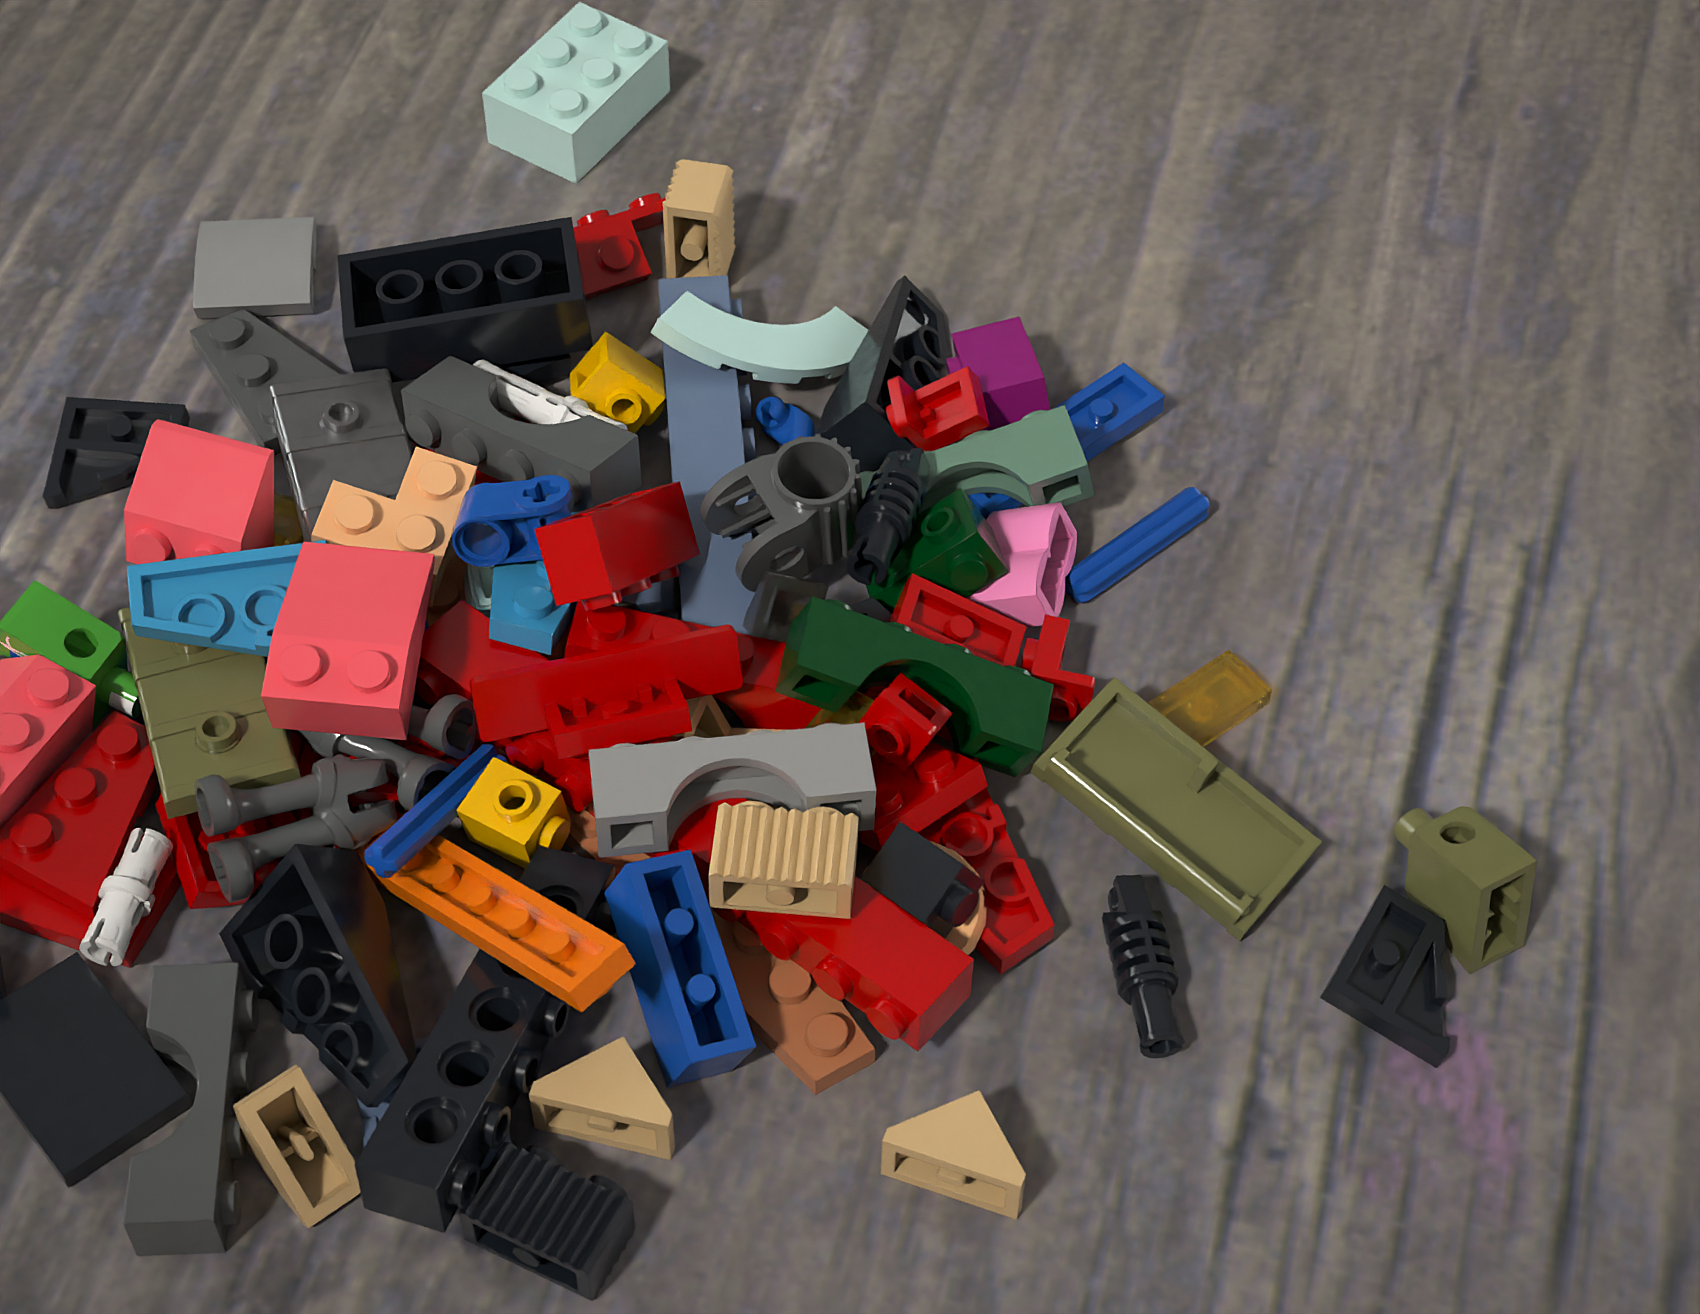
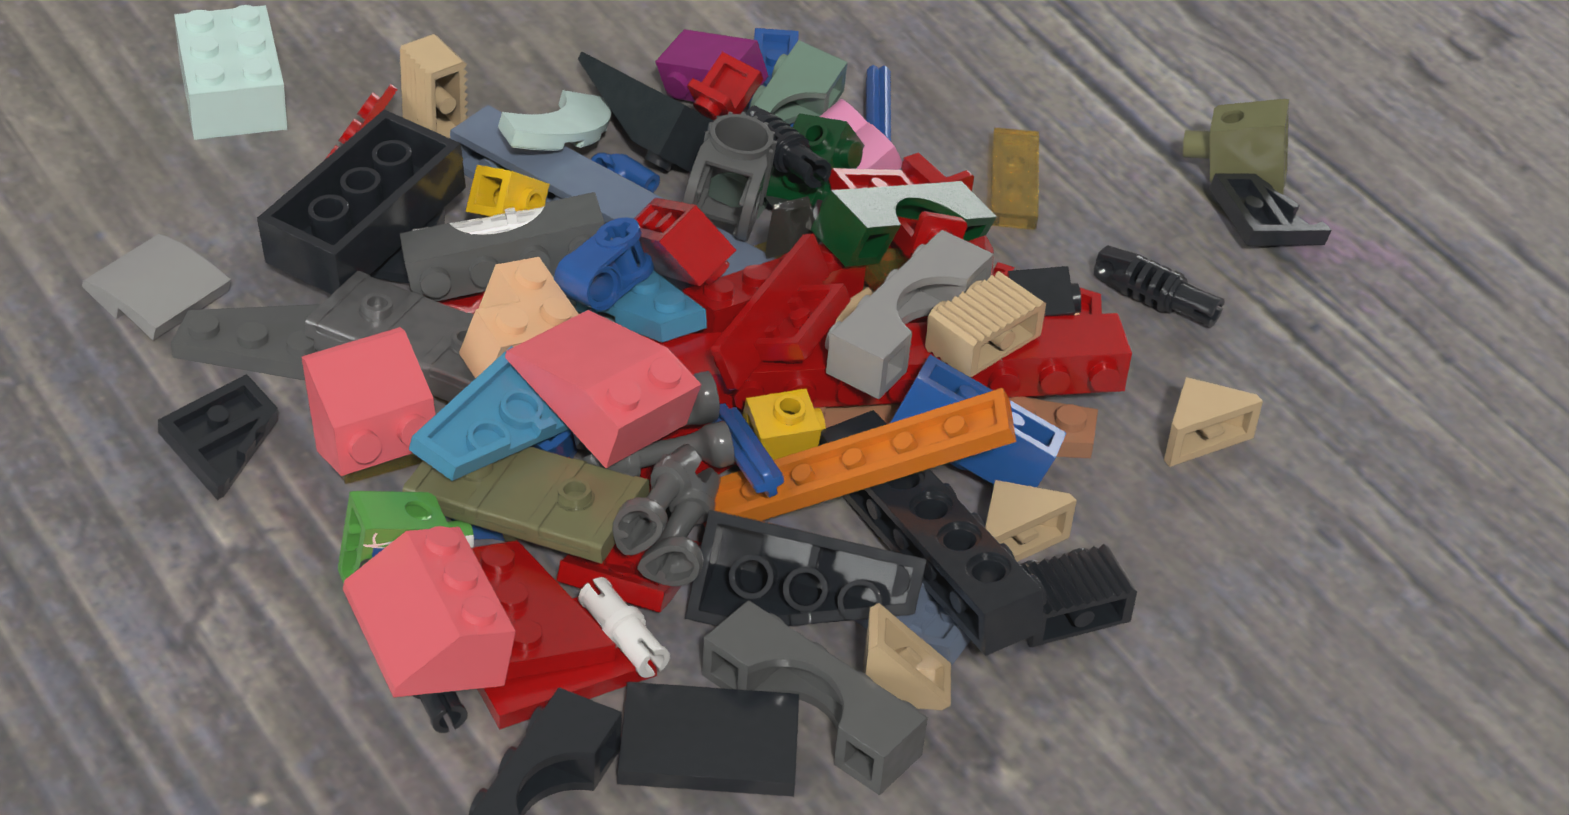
camera: 50 degrees left, 10 degrees down
(1176, 807) = (1078, 205): olive container -> none

